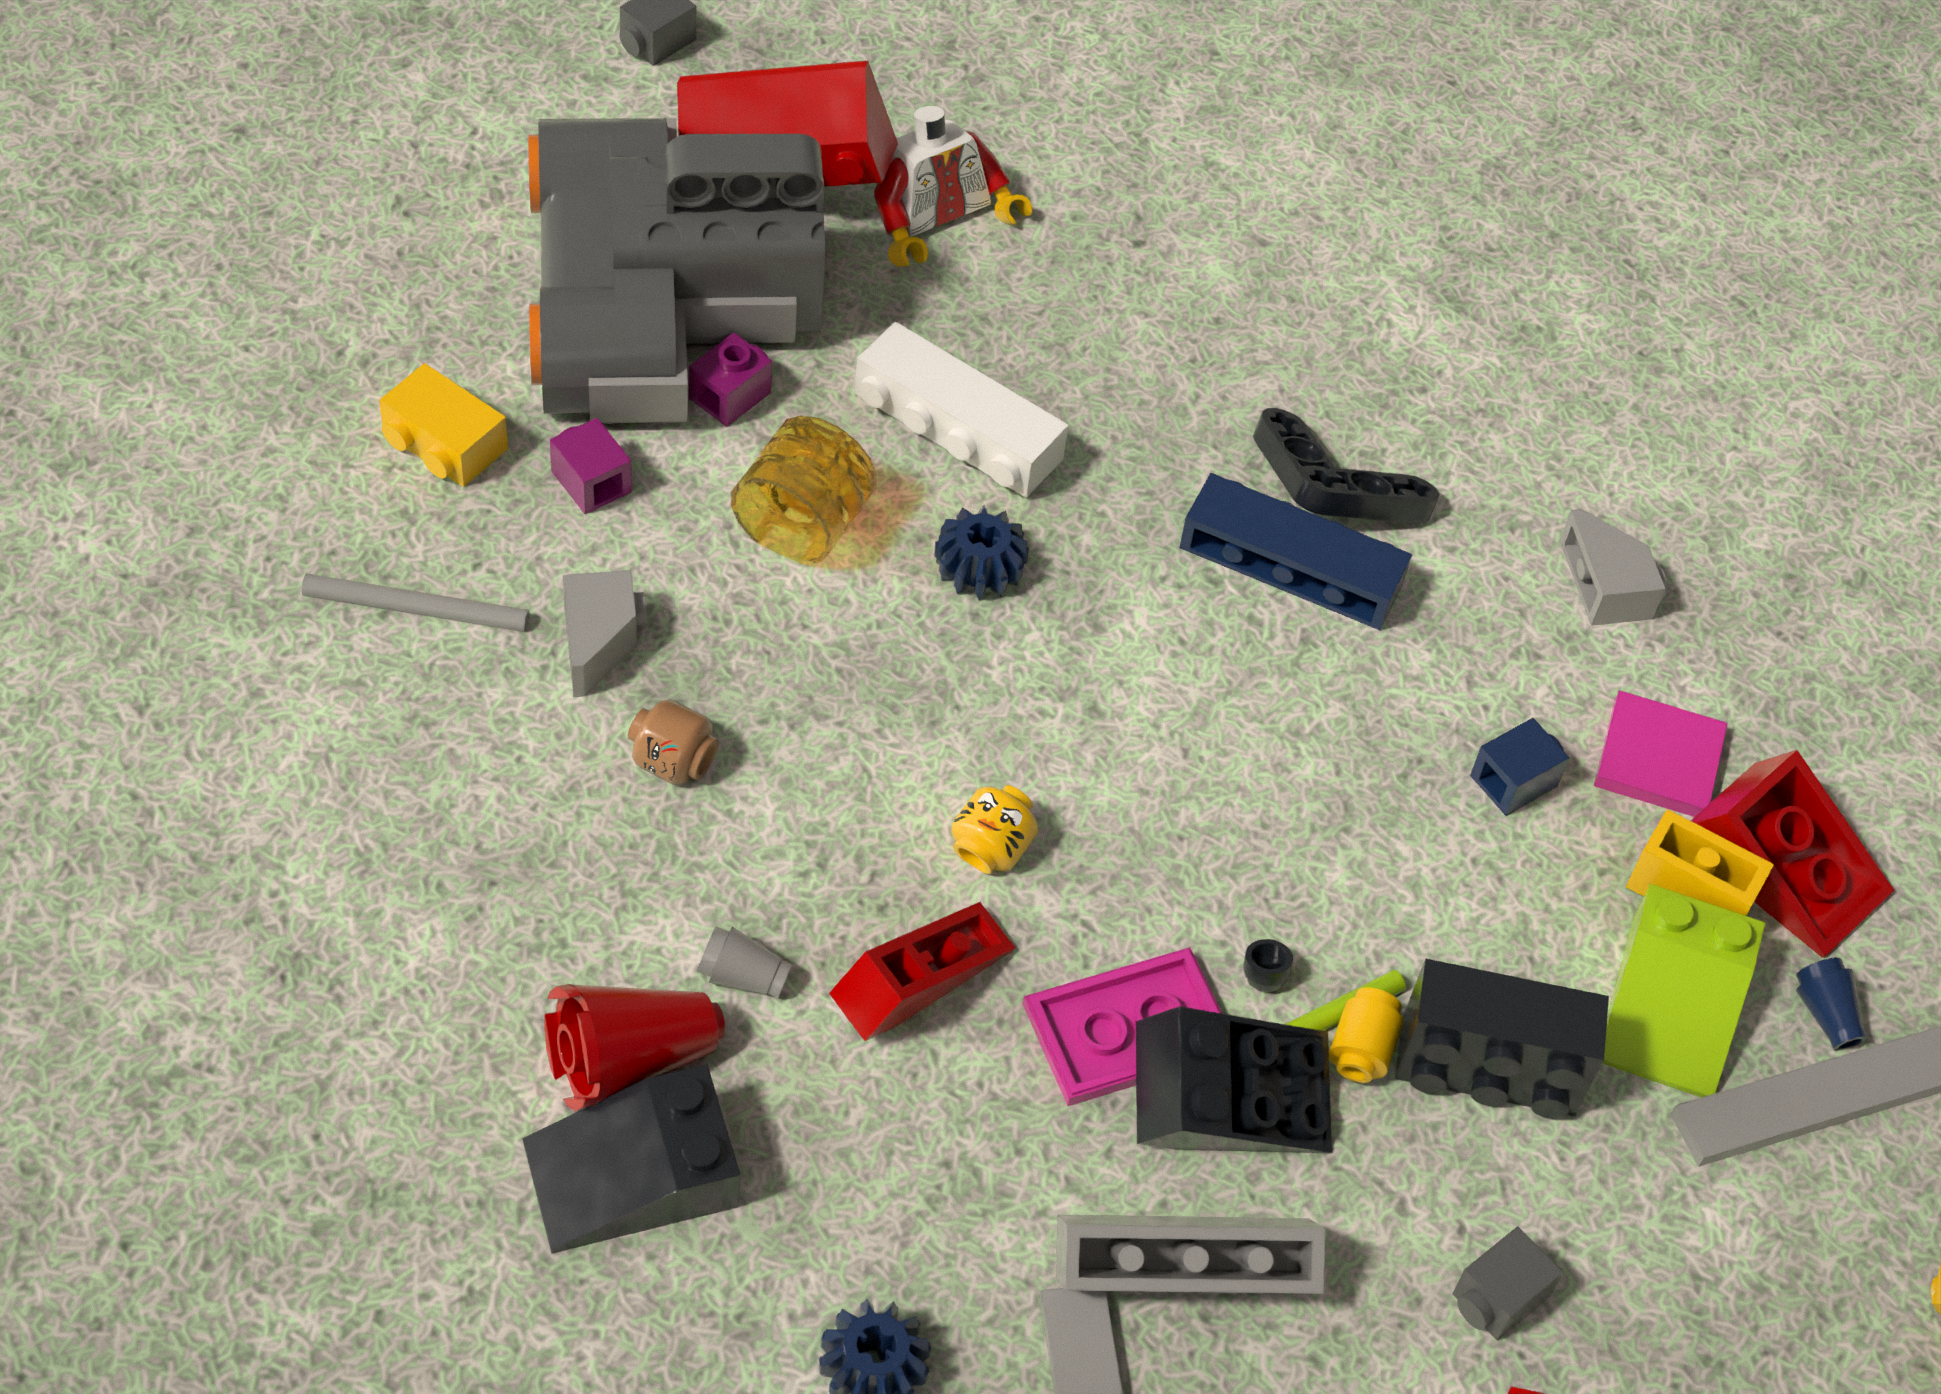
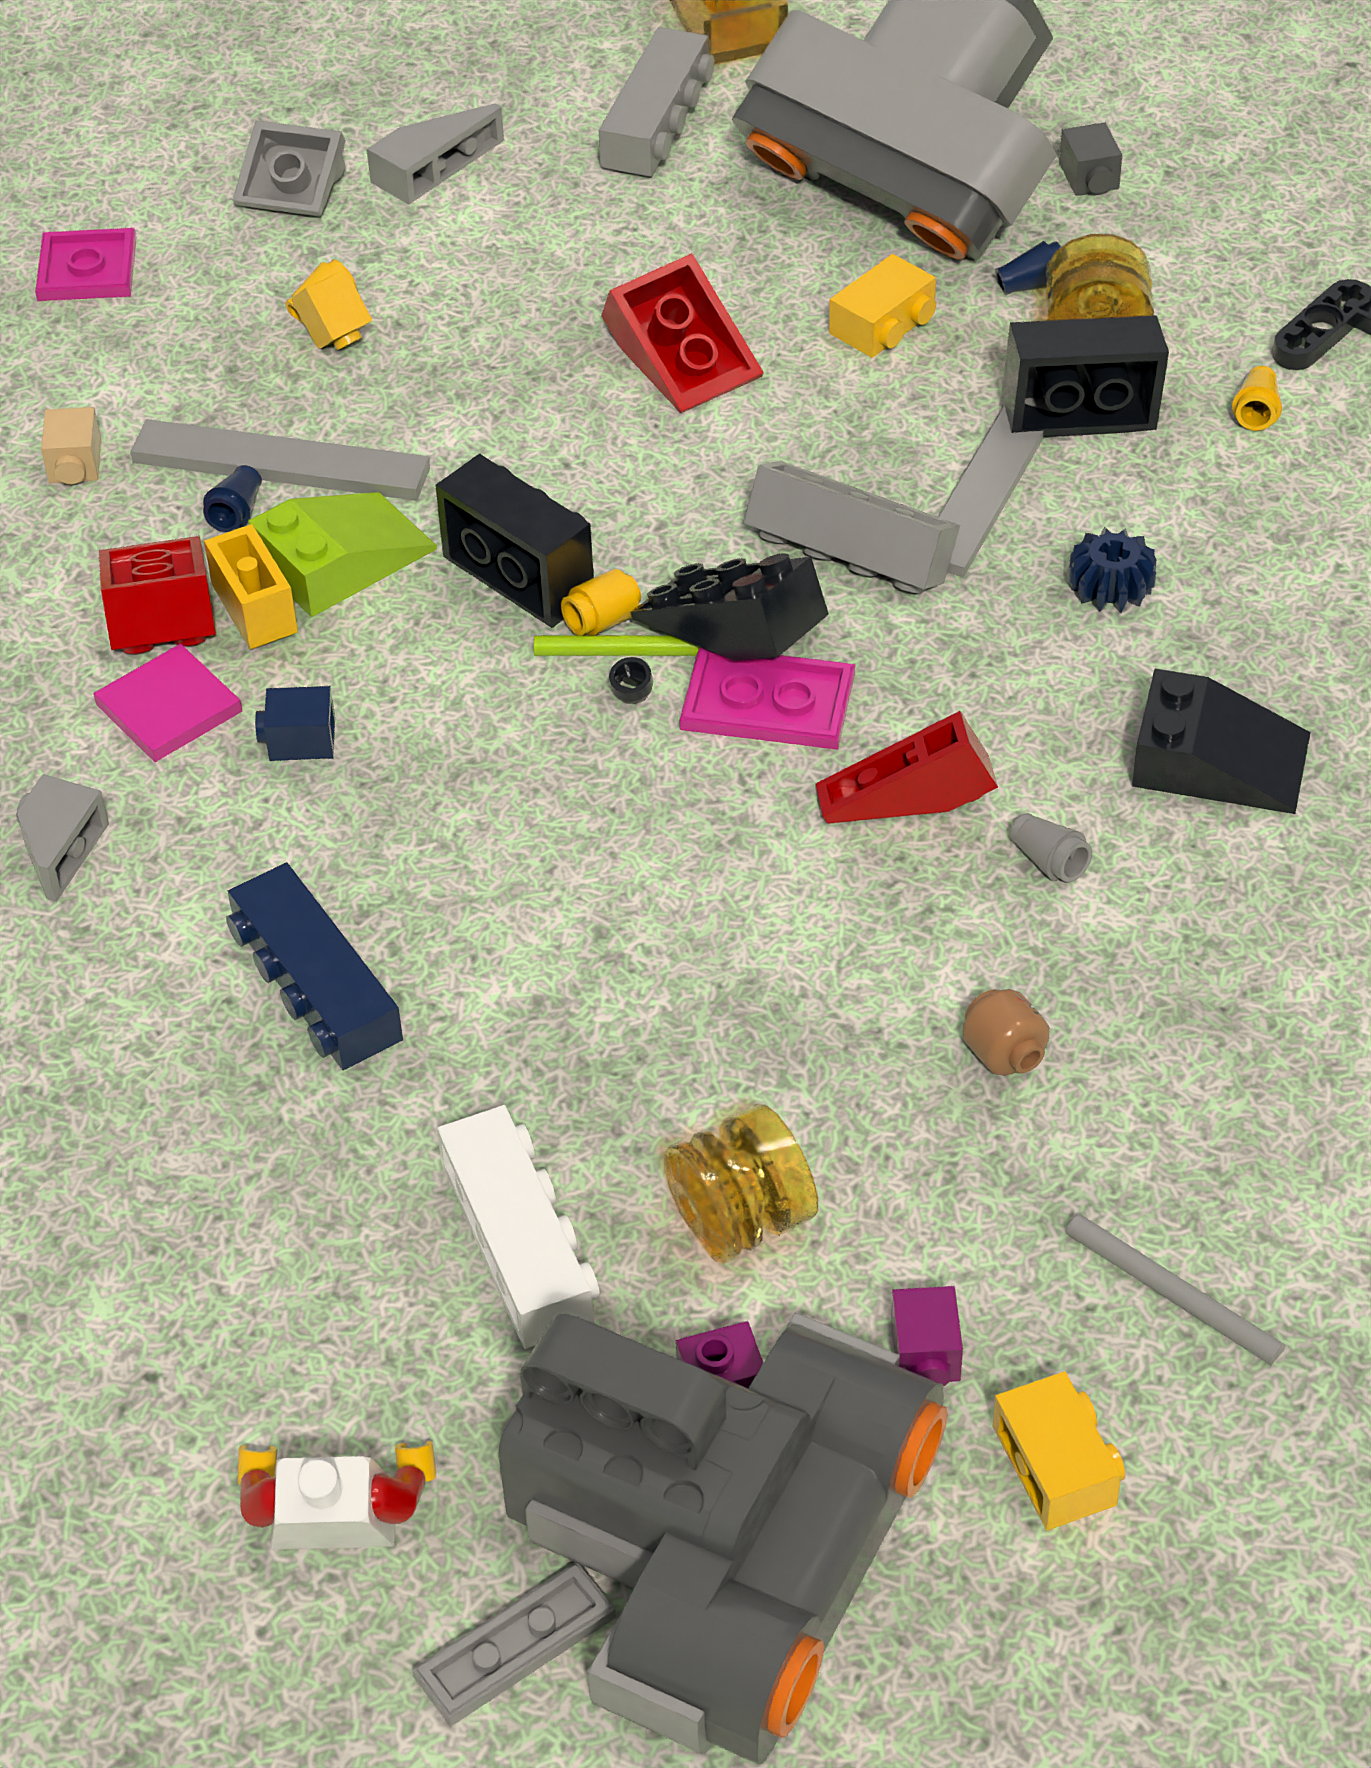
camera: 140 degrees left, 5 degrees down
(600, 624) = (1011, 1166): light grey slope -> none
(625, 1035) = (1181, 810): red cone -> none
(826, 101) = (483, 1571): red slope -> none
(981, 551) = (601, 1087): dark blue gear -> none
(994, 828) = (773, 852): yellow head -> none
(1337, 491) = (228, 1006): black beam -> none
(1506, 1284) = (641, 441): dark grey brick -> none

